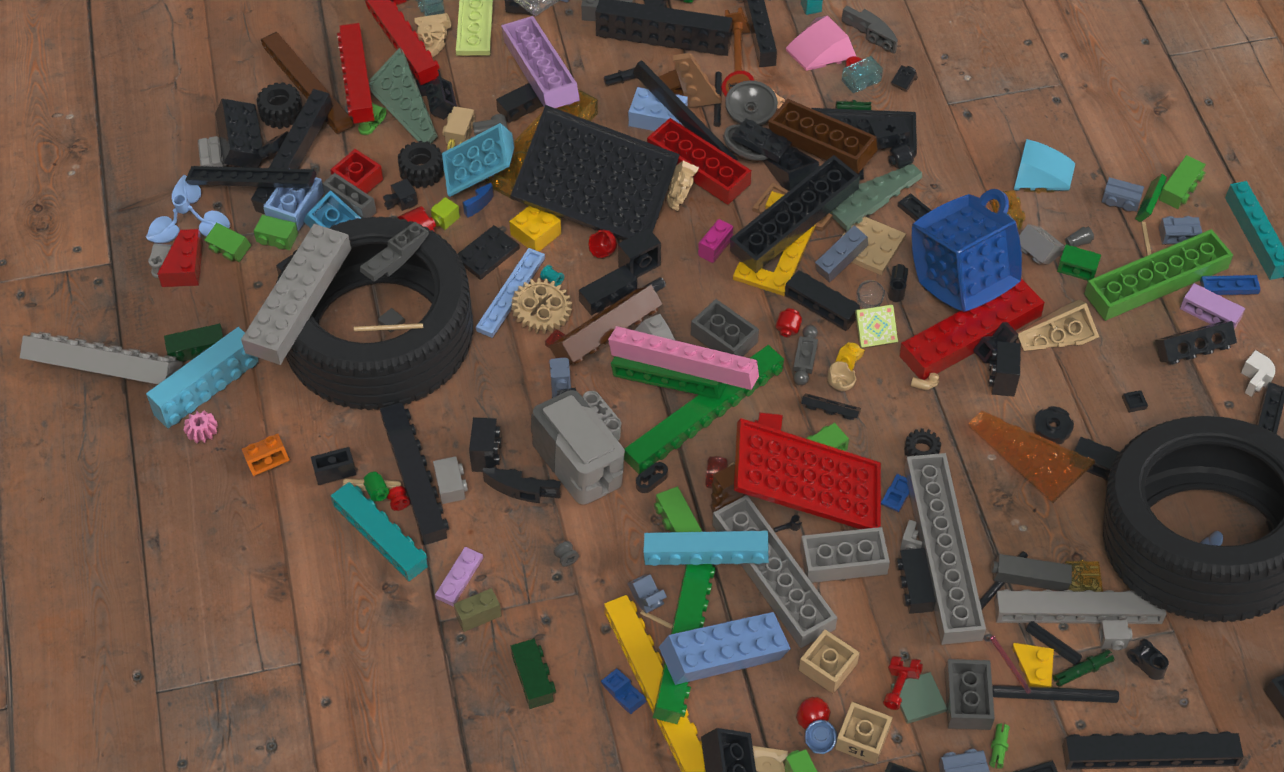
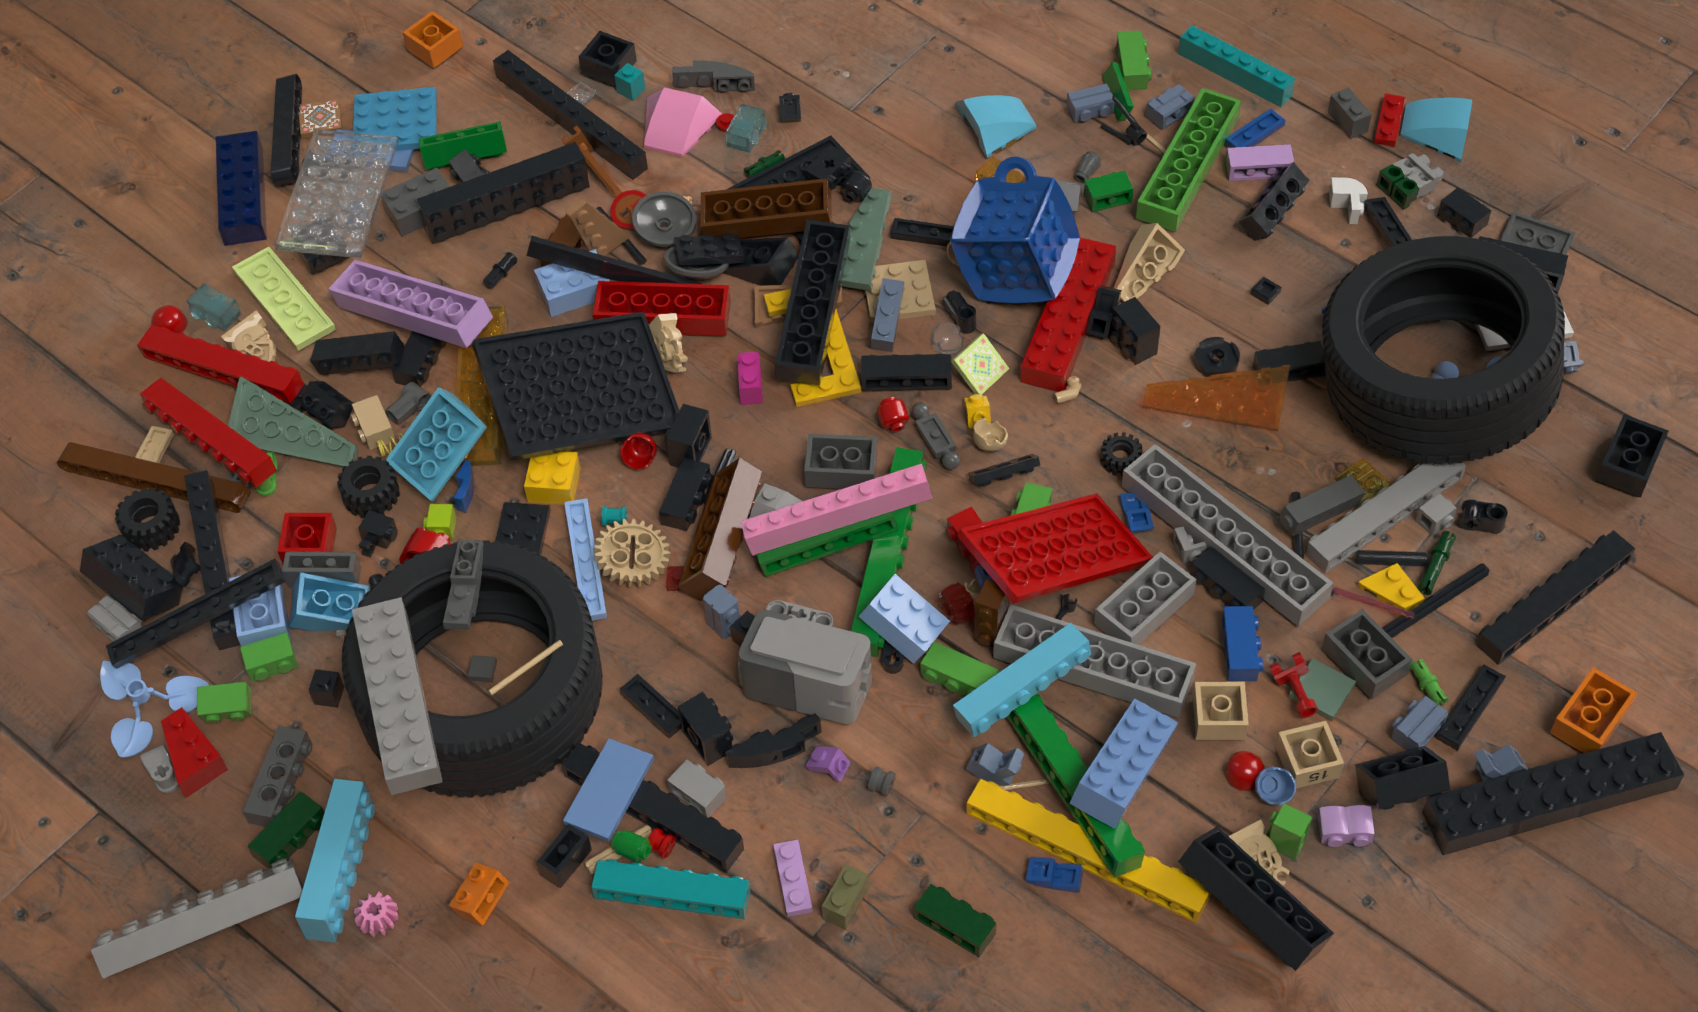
camera: 35 degrees left, 0 degrees up
(219, 305) = (285, 742): none -> dark grey brick
(324, 63) = (155, 444): none -> tan plate
(391, 442) = (608, 790): none -> medium blue tile
(468, 407) = (652, 705): none -> black plate
(485, 76) = (357, 352): none -> black brick
(545, 519) = (830, 761): none -> medium lavender bracket
(669, 458) = (904, 618): none -> light blue brick
(887, 628) = (1241, 643): none -> blue brick
(1137, 234) = (1134, 131): none -> black plant

